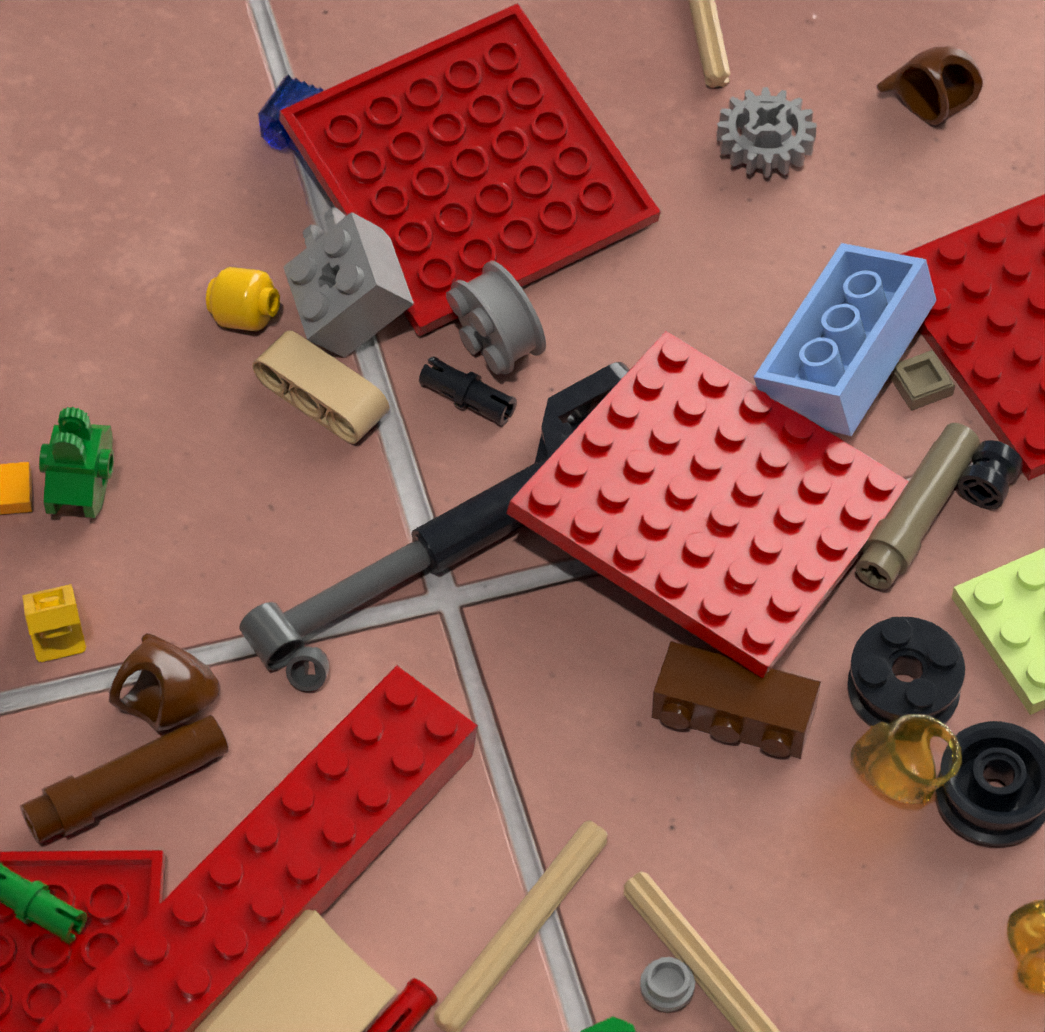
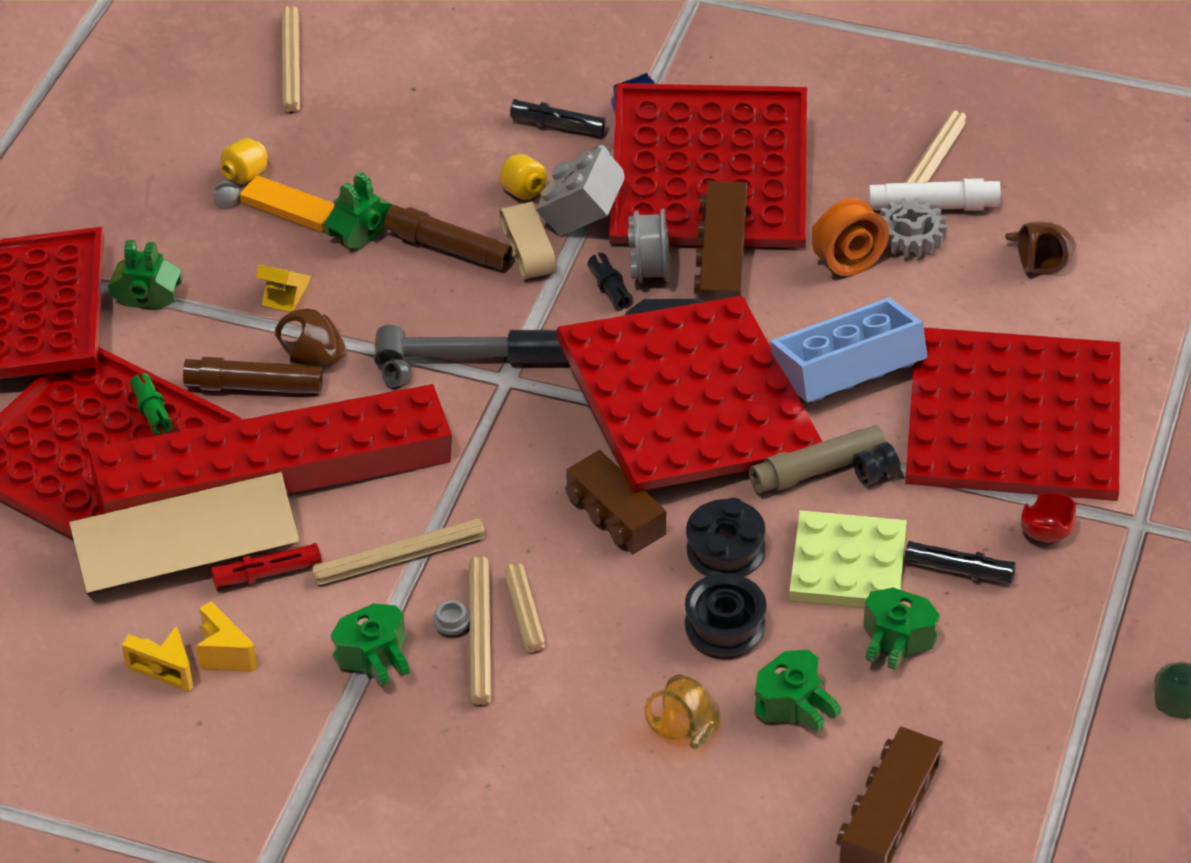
camera: 35 degrees right, 10 degrees down
(159, 203) = (556, 117): none -> black pin
(164, 439) = (422, 228): none -> reddish brown piece
(579, 271) = (723, 241): none -> reddish brown brick
(720, 182) = (849, 237): none -> orange wheel
(742, 913) = (524, 607): none -> tan axle
(789, 57) = (968, 194): none -> white piece
(900, 759) = (678, 568): clear yellow piece -> none
(922, 380) = (886, 400): dark tan tile -> none

